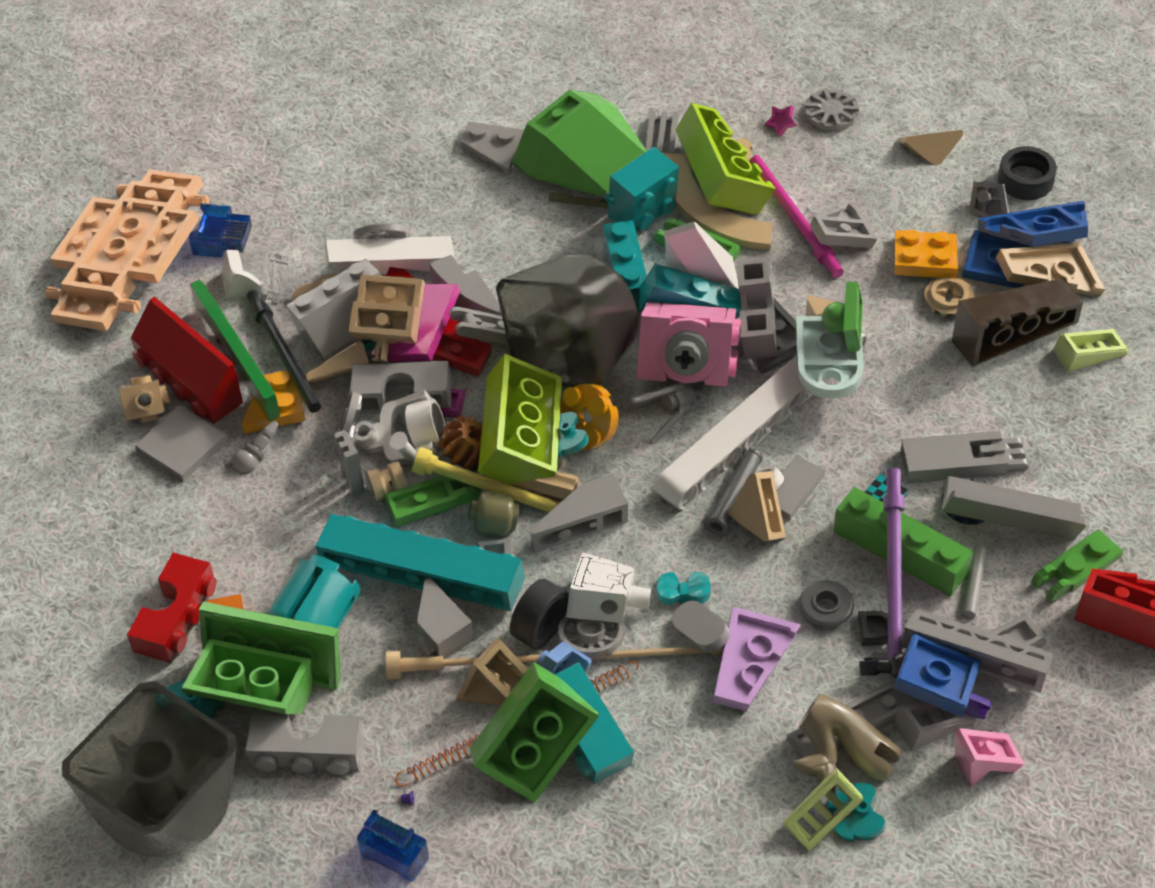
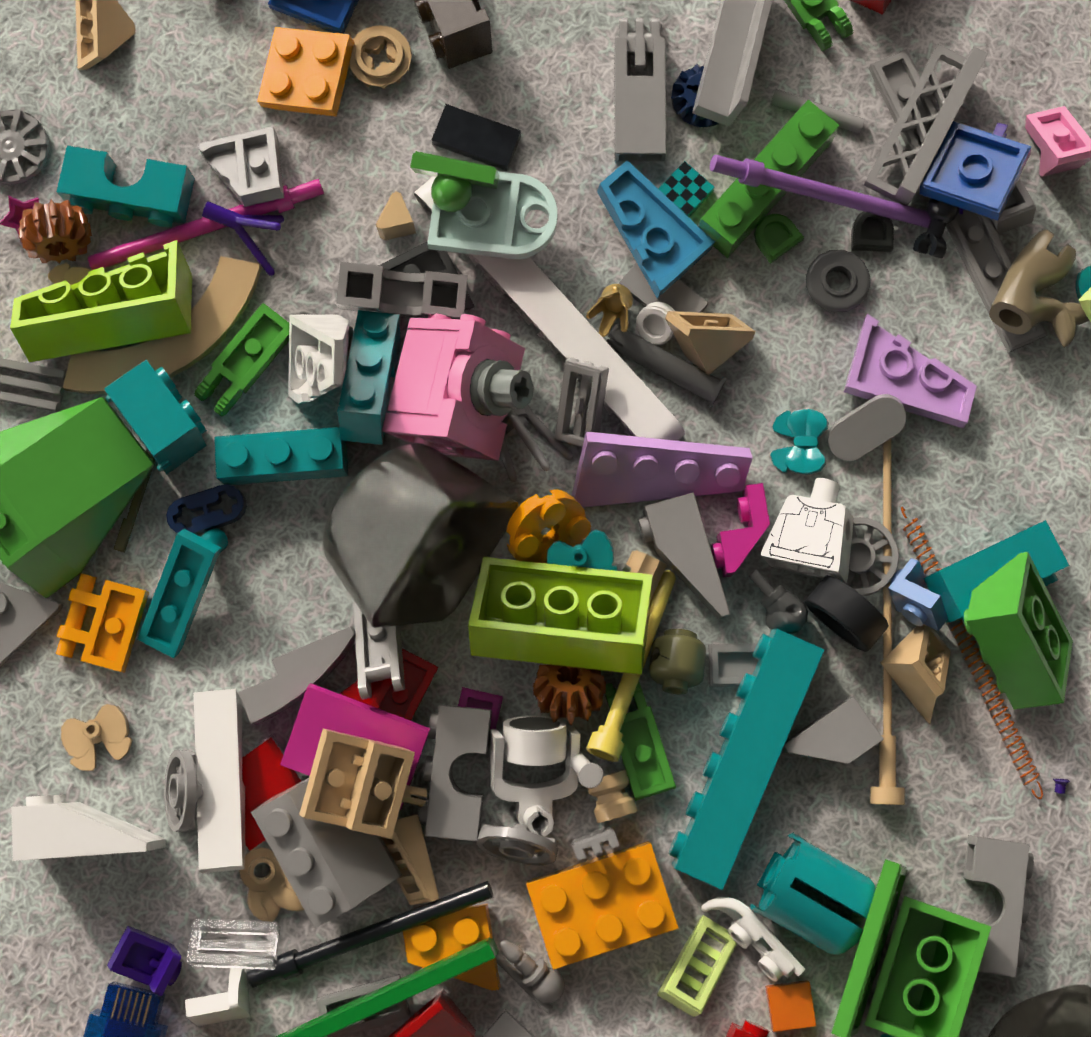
camera: 85 degrees left, 30 degrees up
(241, 531) = (676, 974): none -> yellowish green slope
(264, 594) = (748, 930): none -> white piece
(266, 234) = (146, 960): none -> dark purple bracket
(304, 478) = (601, 905): none -> light orange brick
(352, 180) = (62, 829): none -> white slope
(423, 203) = (108, 727): none -> tan piece
(497, 191) = (113, 625): none -> light orange plate
(526, 218) = (181, 589): none -> teal piece
(549, 572) = (783, 608): none -> dark grey piece
(587, 234) = (202, 501): none -> dark blue beam
(590, 541) = (736, 544): none -> dark pink slope
(644, 482) = (649, 469): none -> lavender wing
(690, 431) = (596, 404): none -> light grey tile
(770, 129) = (55, 231): none -> dark orange gear
(779, 452) = (614, 304): none -> pearl gold piece
(797, 228) = (237, 221): none -> dark purple plant
(812, 183) = (159, 195): none -> teal arch
(851, 465) = (653, 227): none -> dark azure wing
(857, 560) = (776, 236): none -> bright green tile
(898, 360) = (476, 137): none -> black tile

